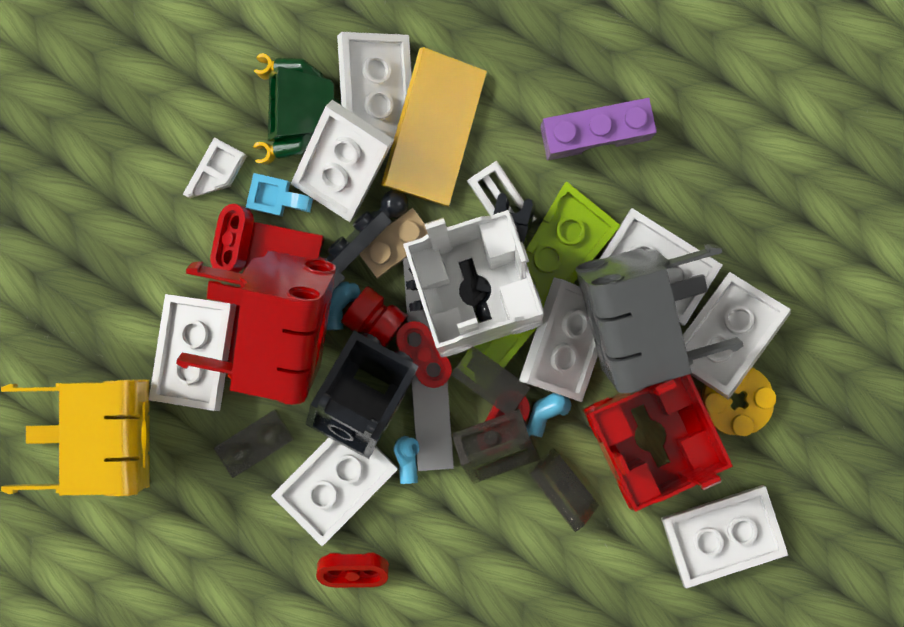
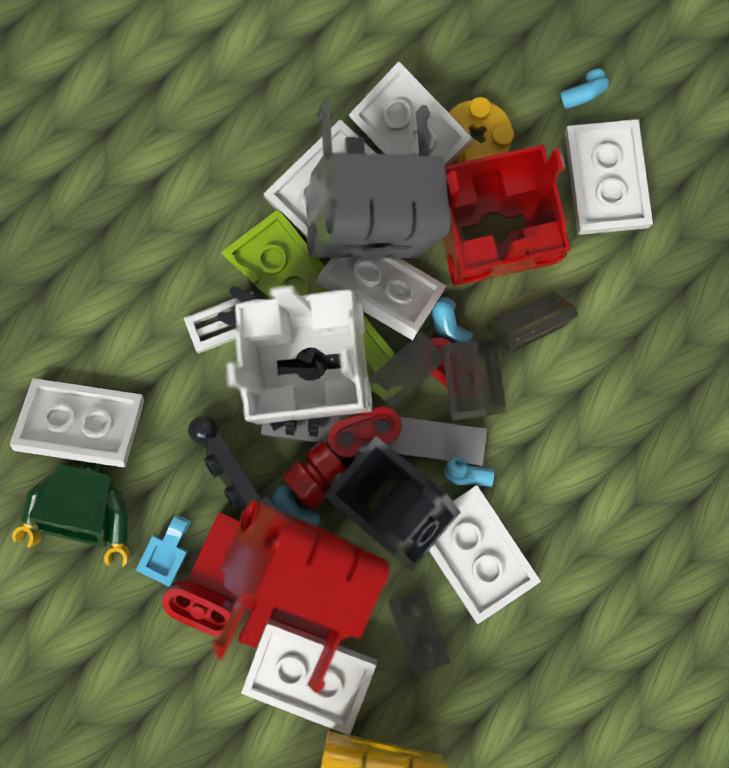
camera: 80 degrees left, 5 degrees down
(216, 169) = (122, 610): white tile -> none
(341, 160) = (144, 472): white plate -> none
(352, 570) = (571, 555): red plate -> none
(388, 247) = (243, 439): tan plate -> none
(434, 127) = (133, 372): yellow tile -> none
(606, 125) = (173, 217): medium lavender arch -> none
(805, 499) = (581, 94): none -> medium azure arm

